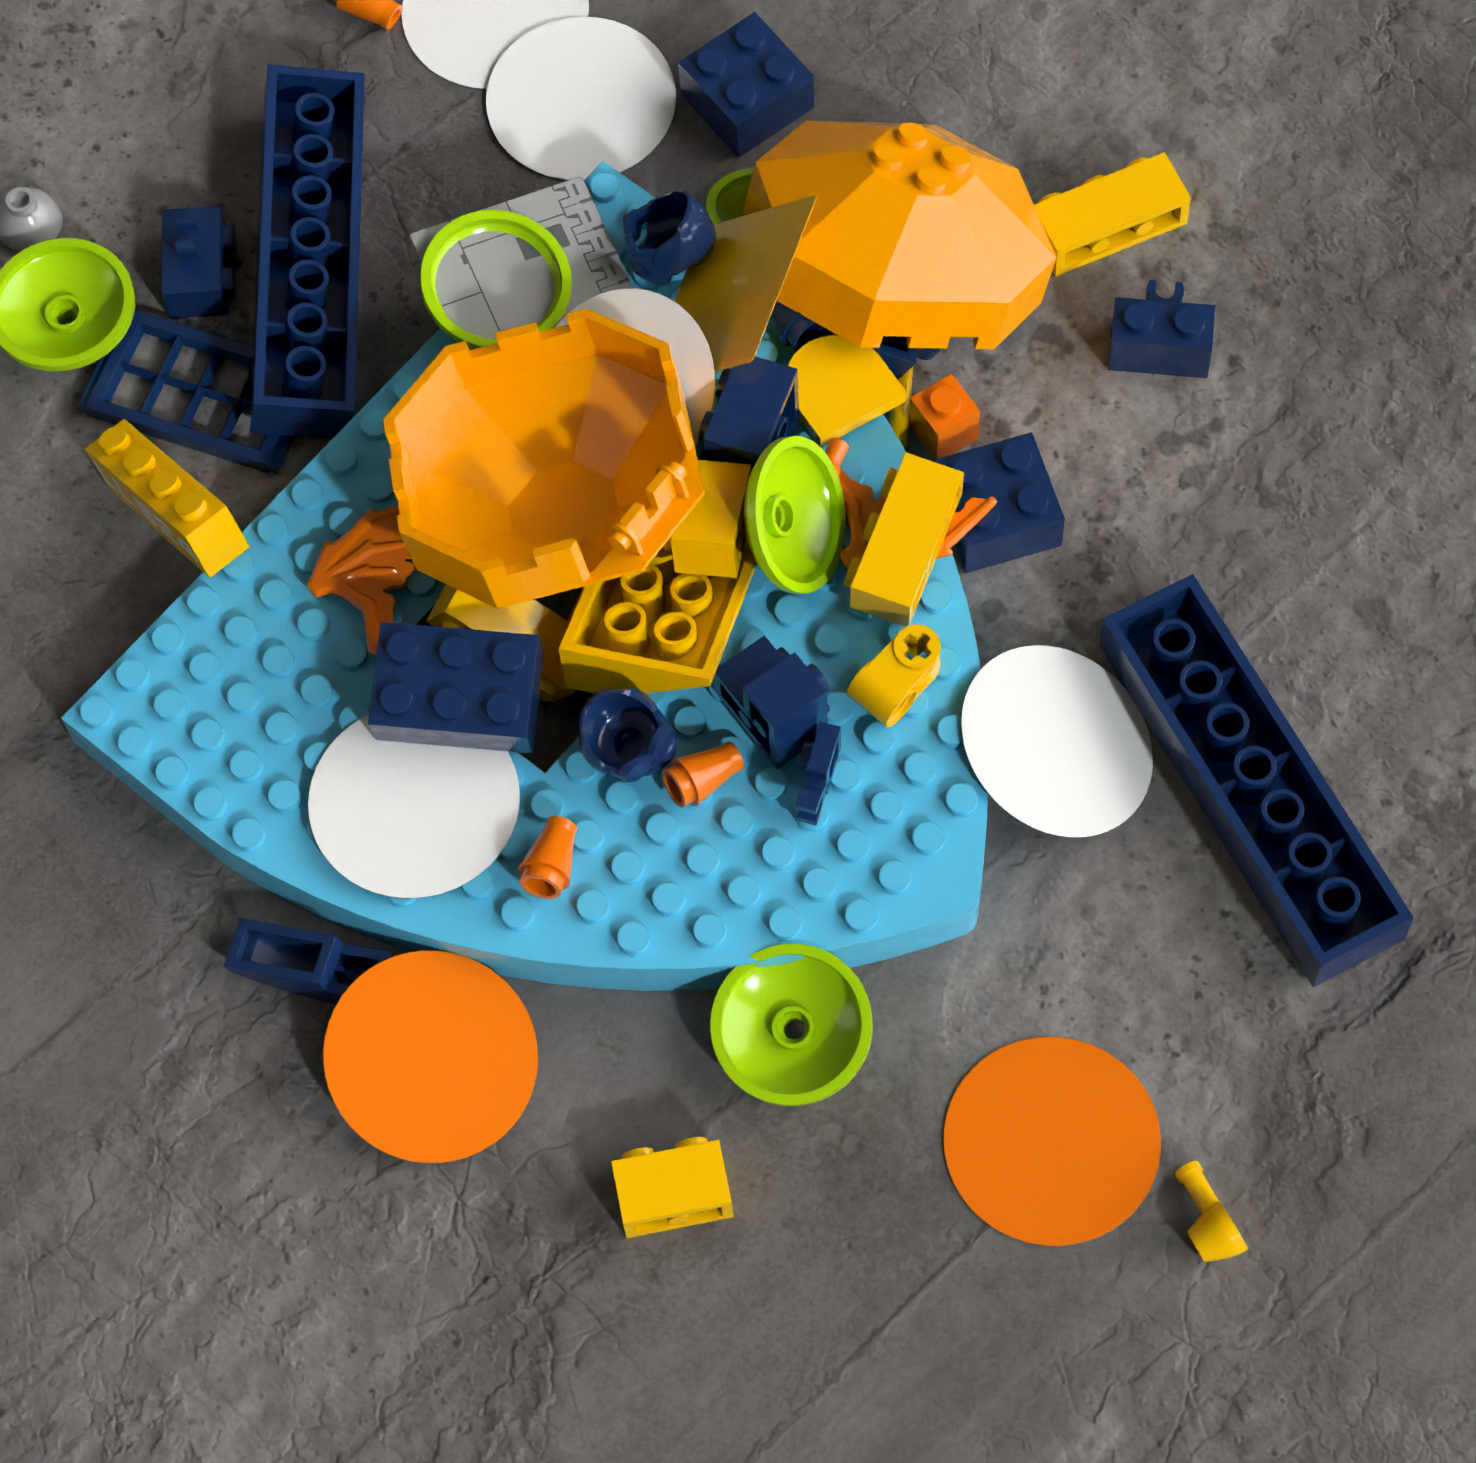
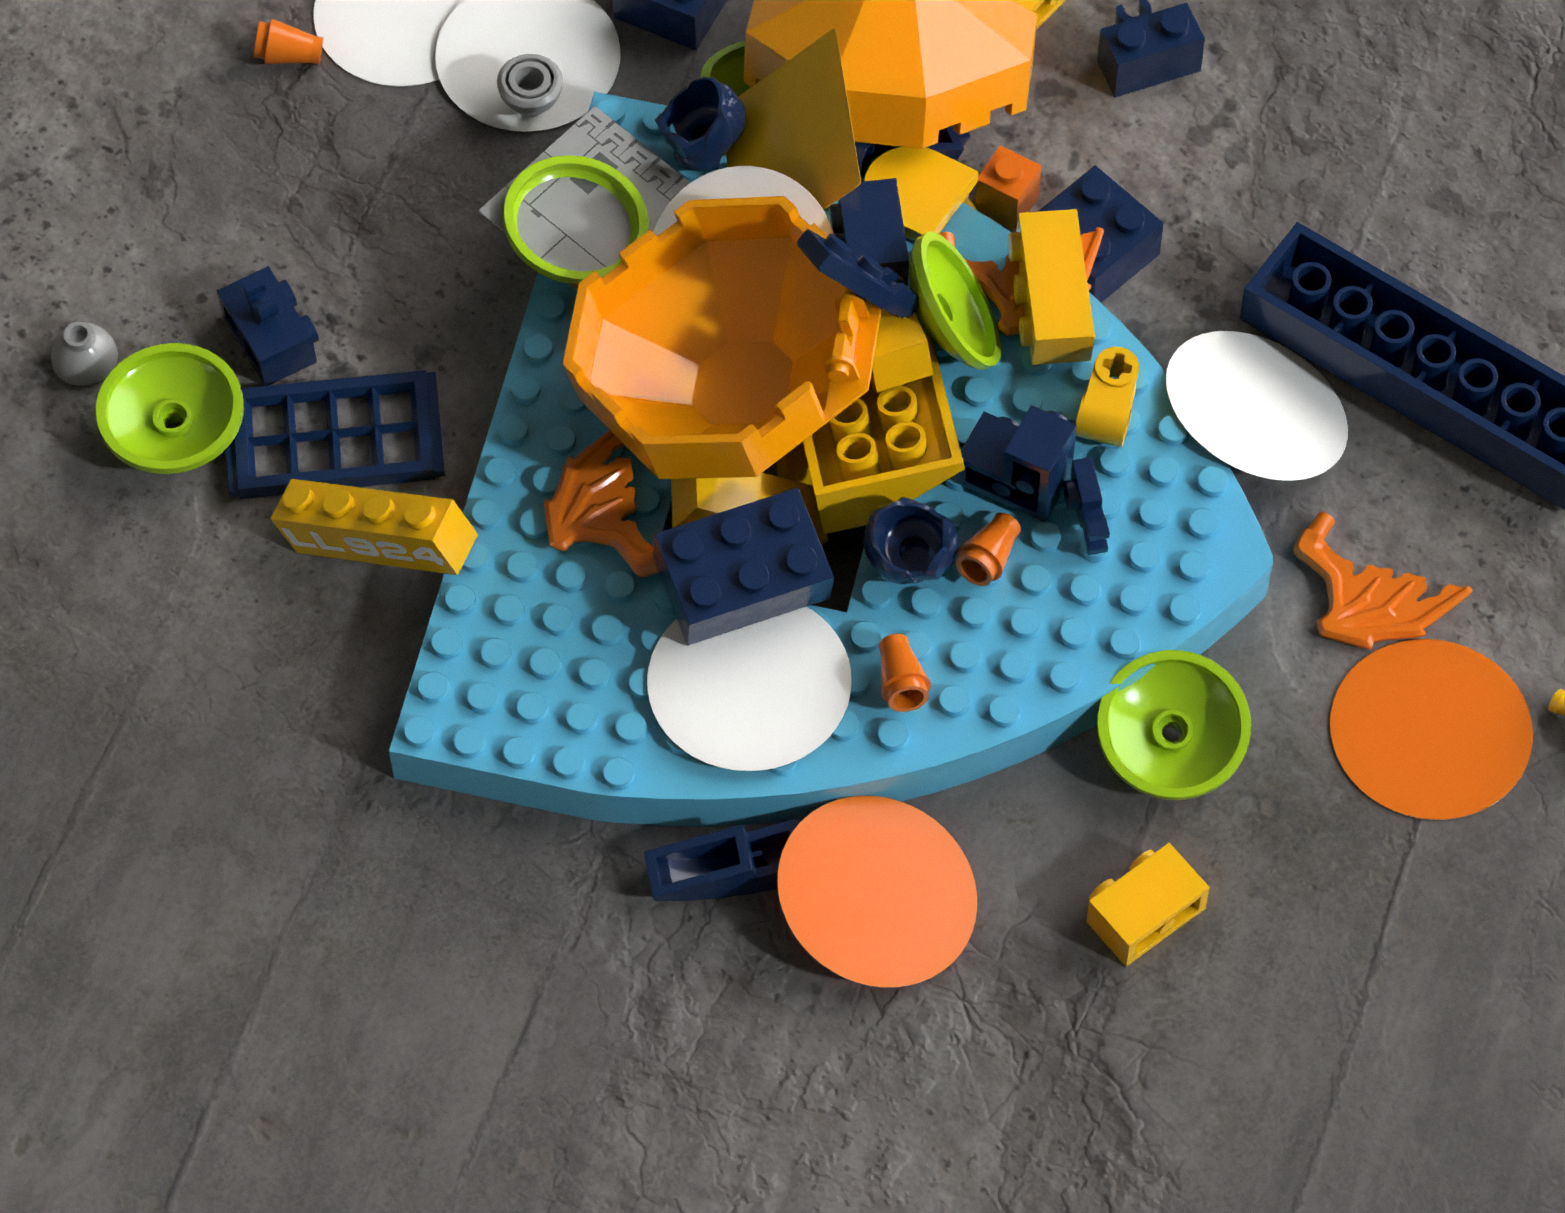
camera: 30 degrees left, 5 degrees down
(308, 252) = (373, 273): dark blue brick -> none
(553, 128) = (529, 84): none -> light grey brick
(689, 452) = (861, 275): none -> dark blue hinge
(1065, 988) = (1372, 603): none -> orange animal

